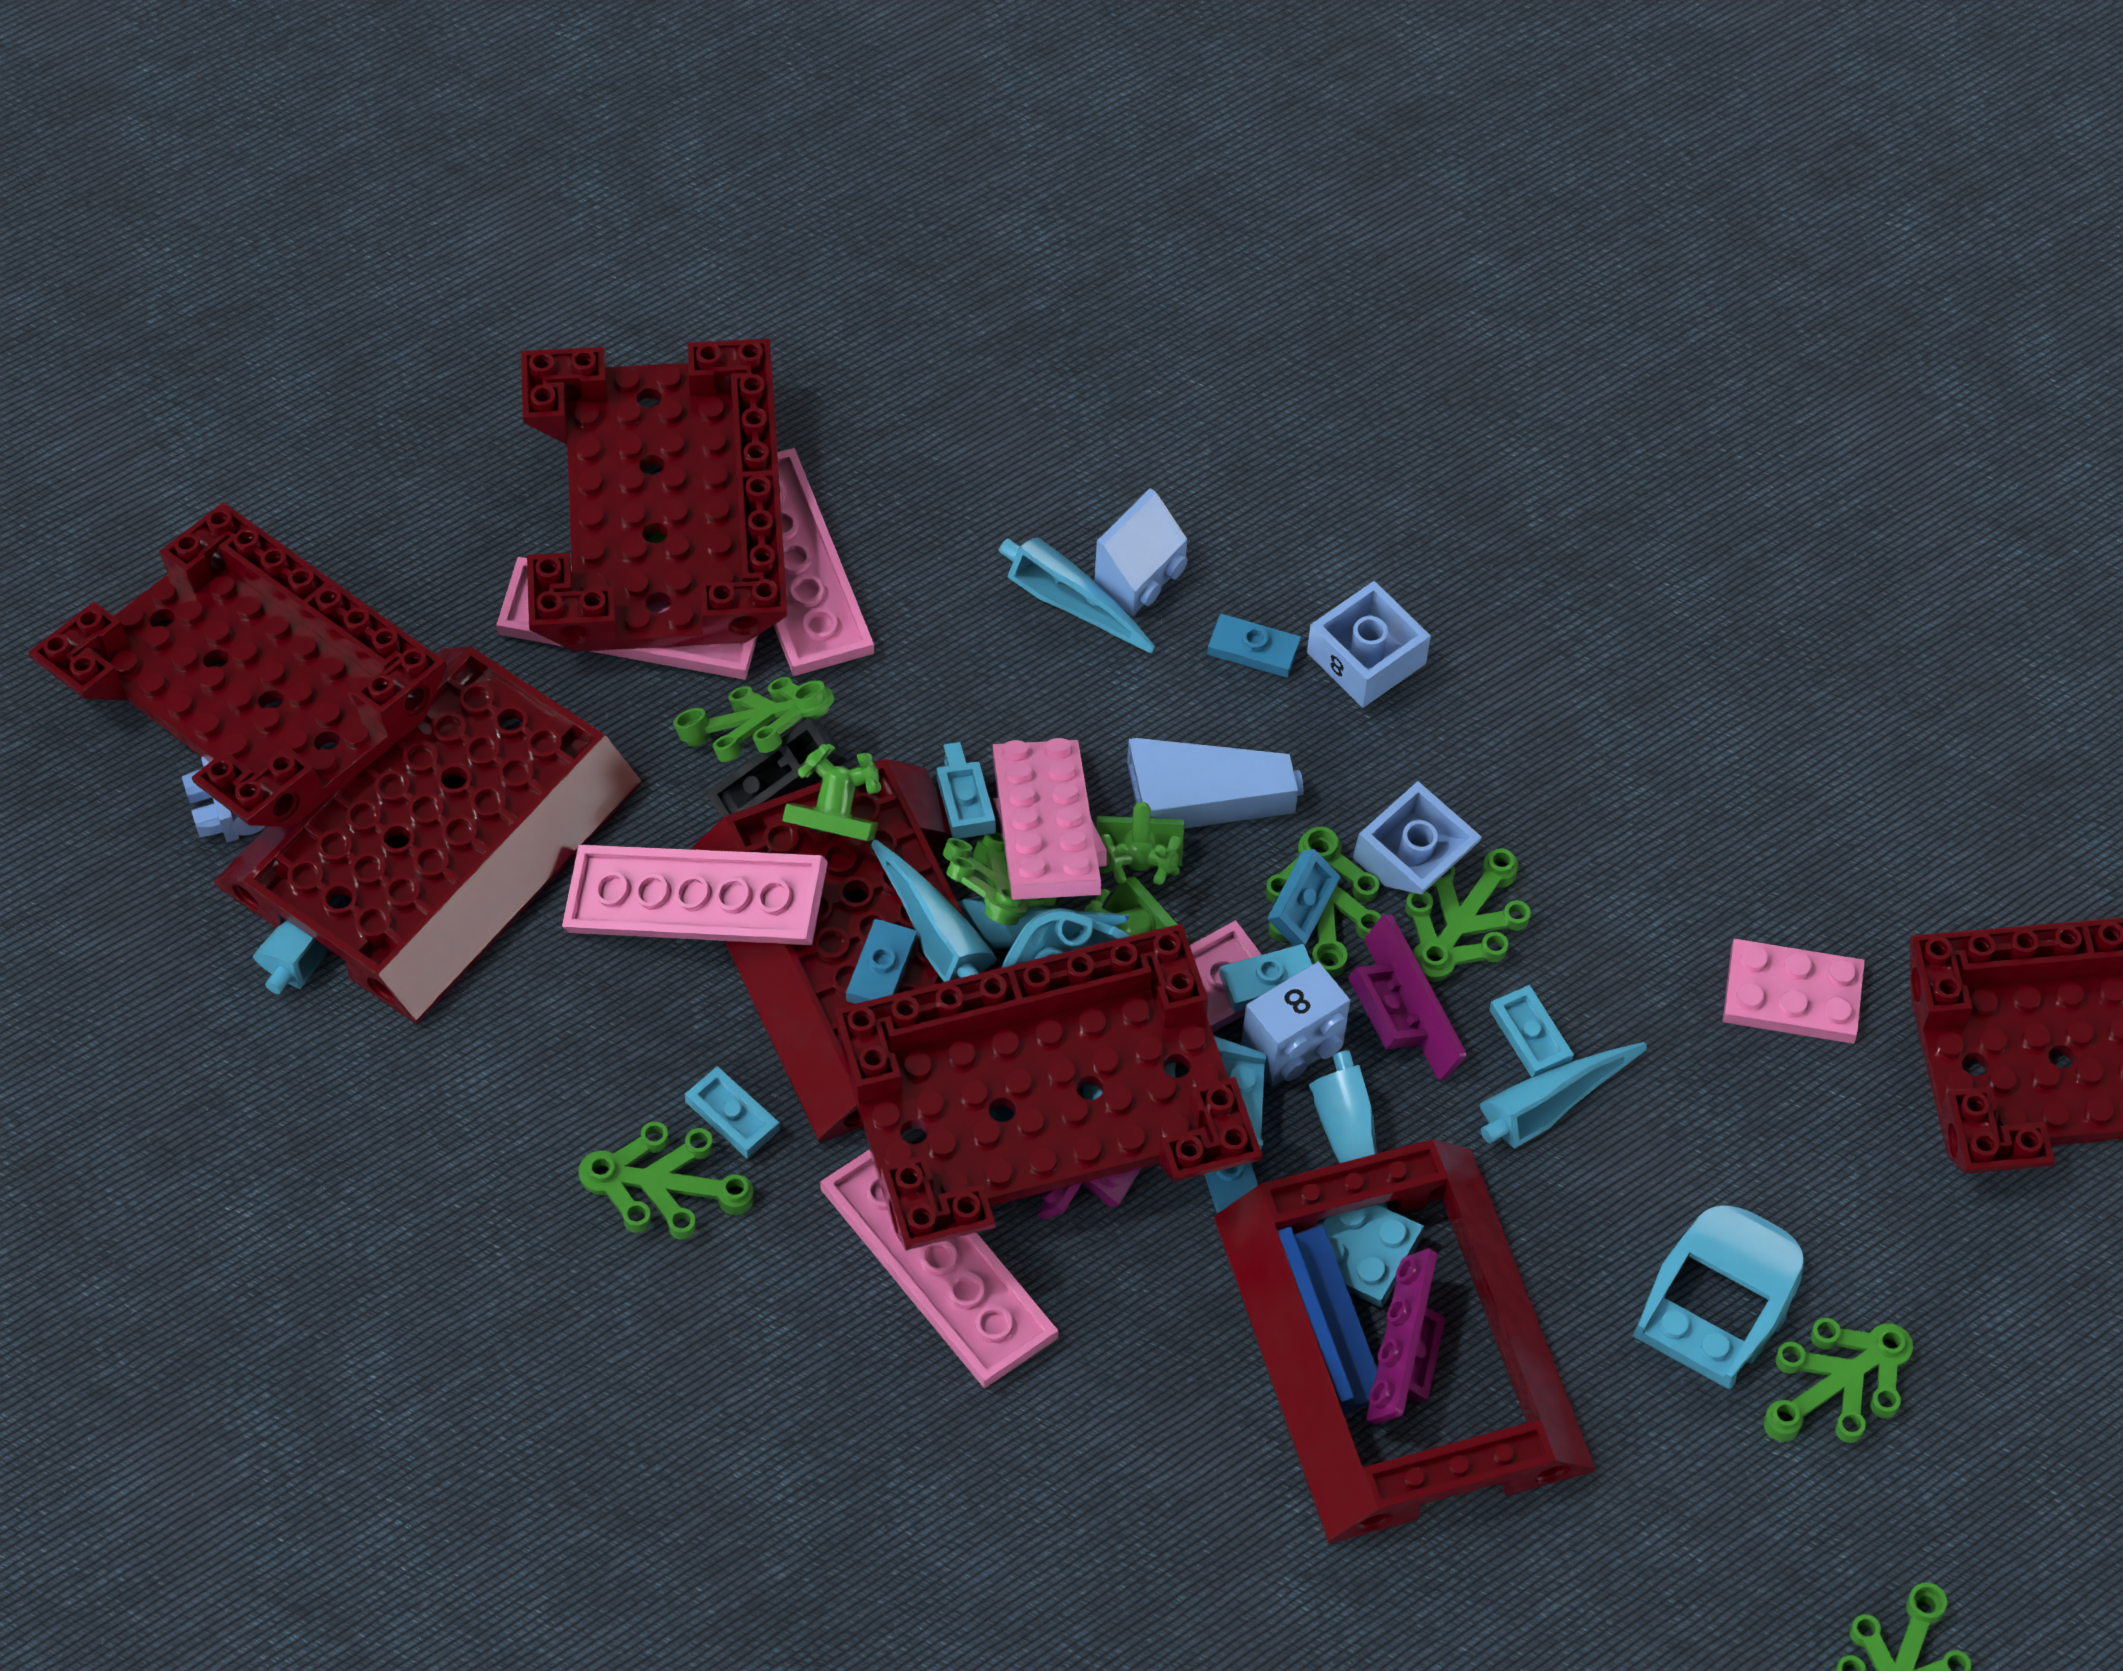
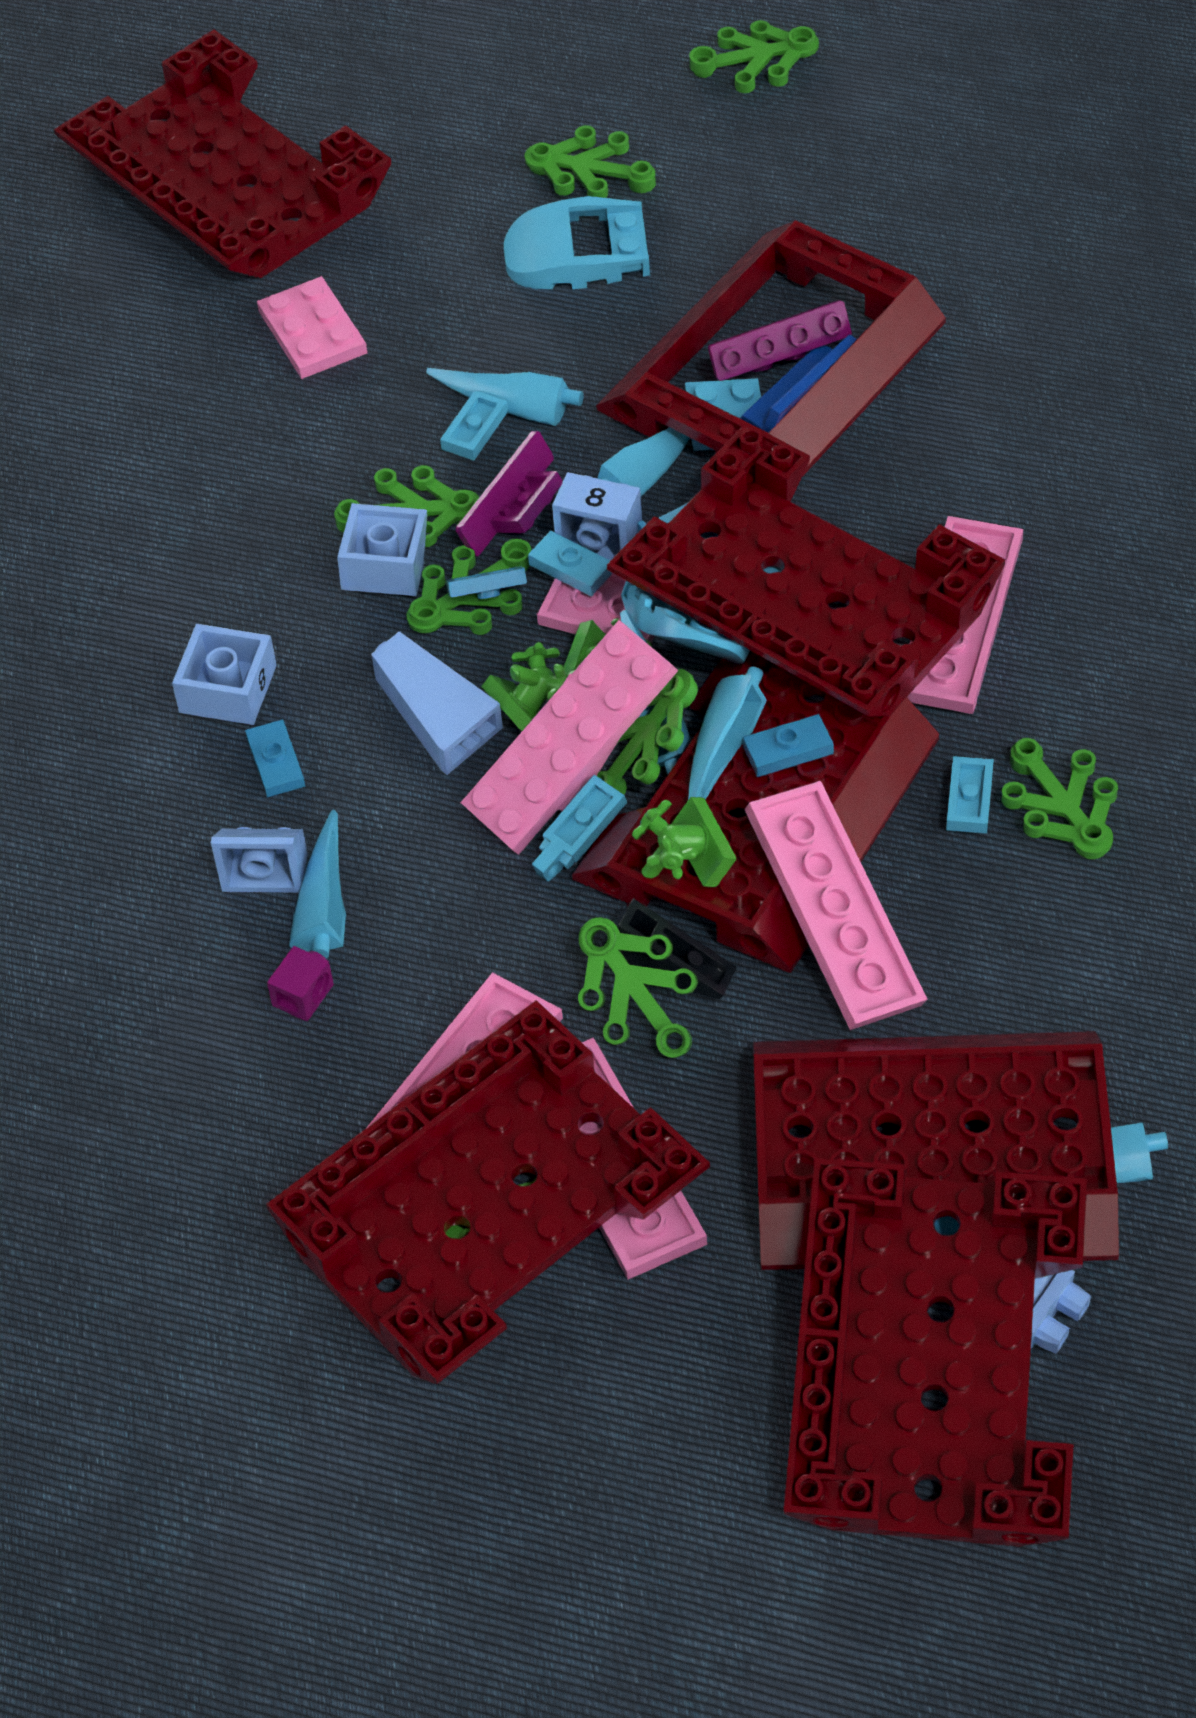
camera: 120 degrees left, 5 degrees down
(988, 516) = (300, 983): none -> magenta brick

